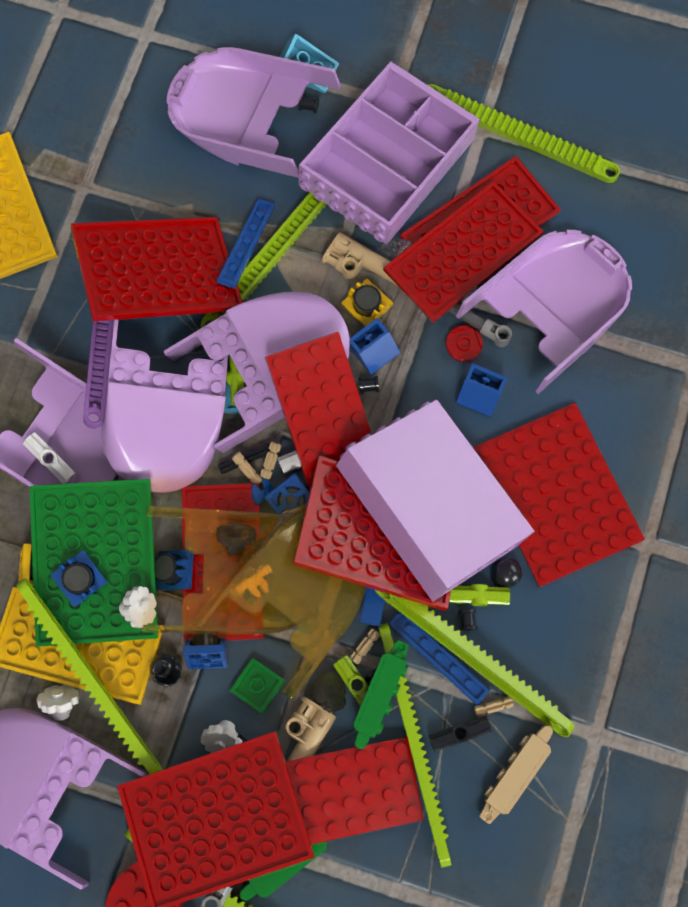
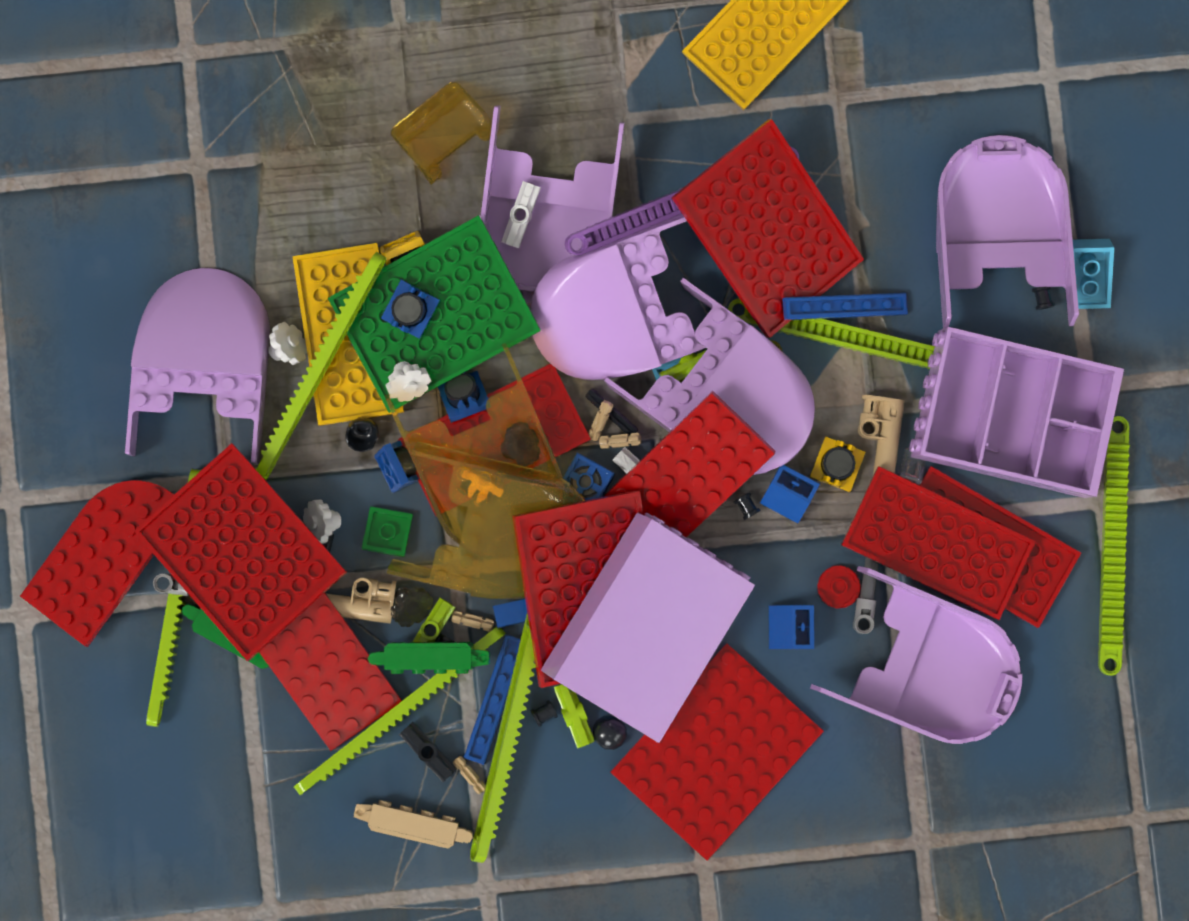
camera: 65 degrees right, 10 degrees up
(257, 494) = (577, 445): blue piece -> none

